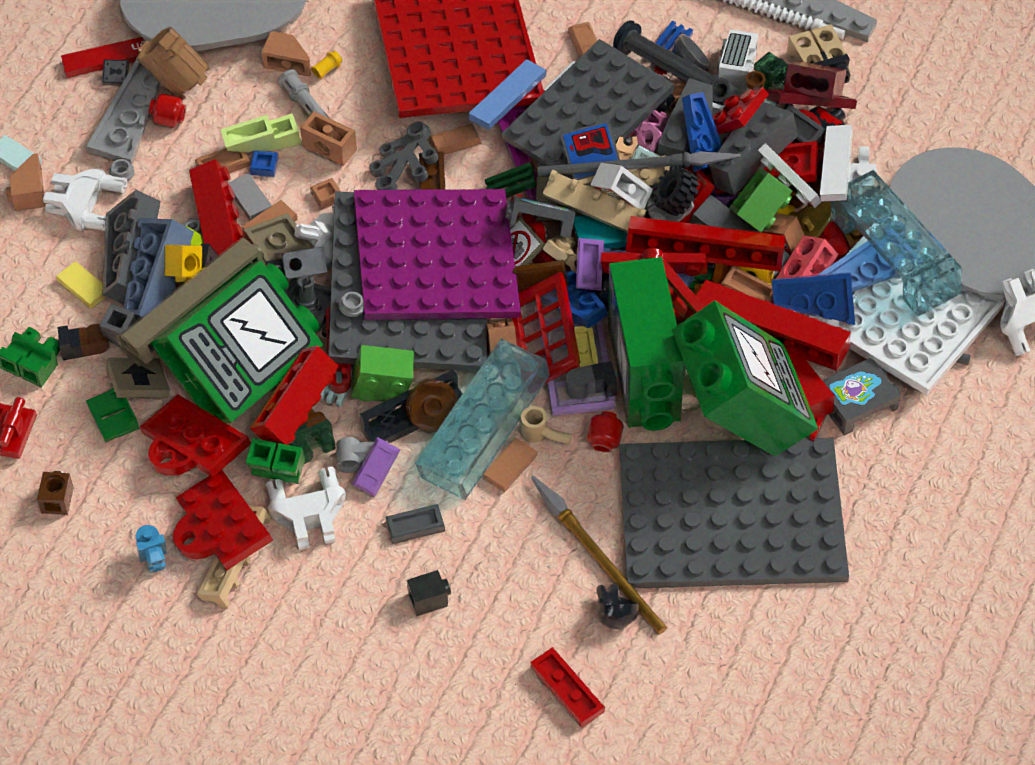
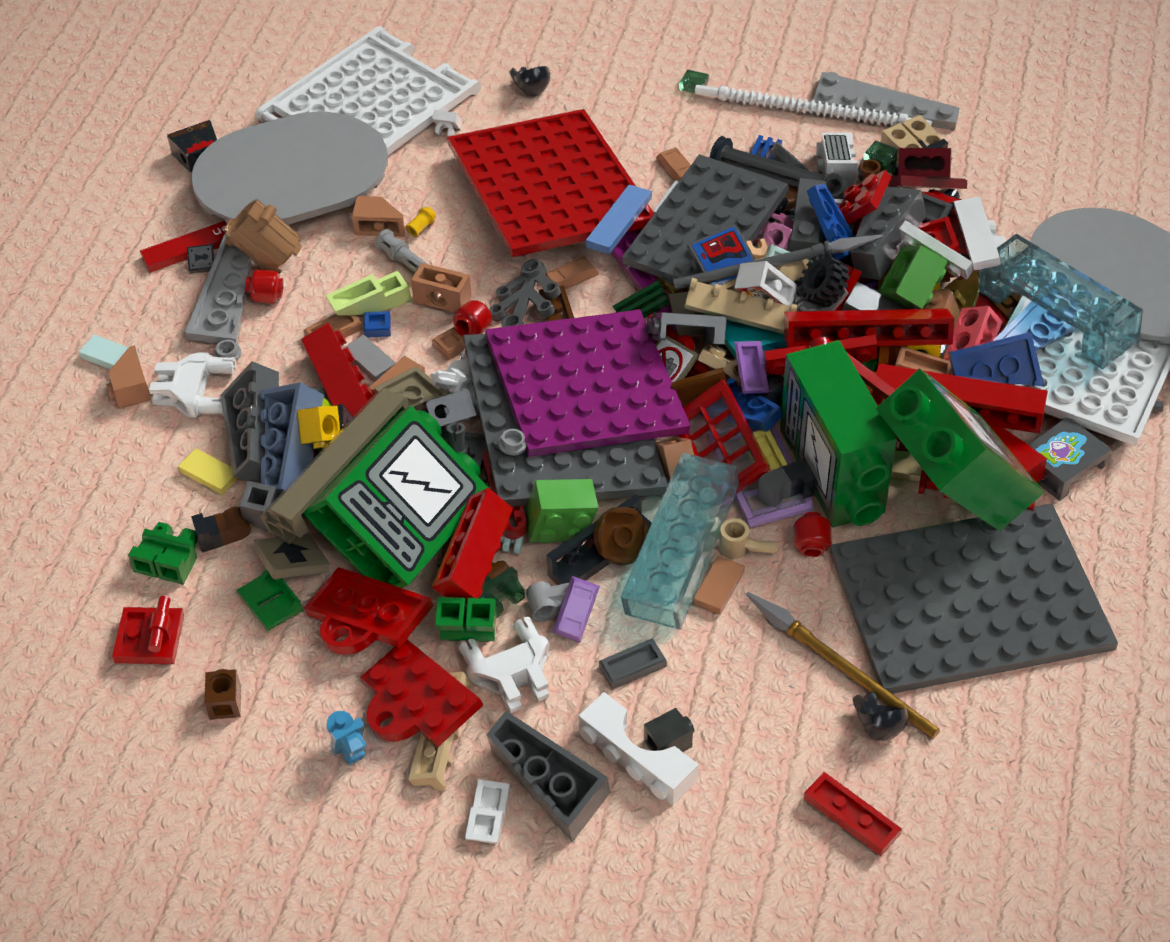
camera: 10 degrees left, 5 degrees down
(259, 633) = (488, 811): none -> white slope
(319, 612) = (553, 776): none -> dark grey wedge
(350, 174) = (472, 318): none -> red head
(417, 624) = (665, 771): none -> white arch

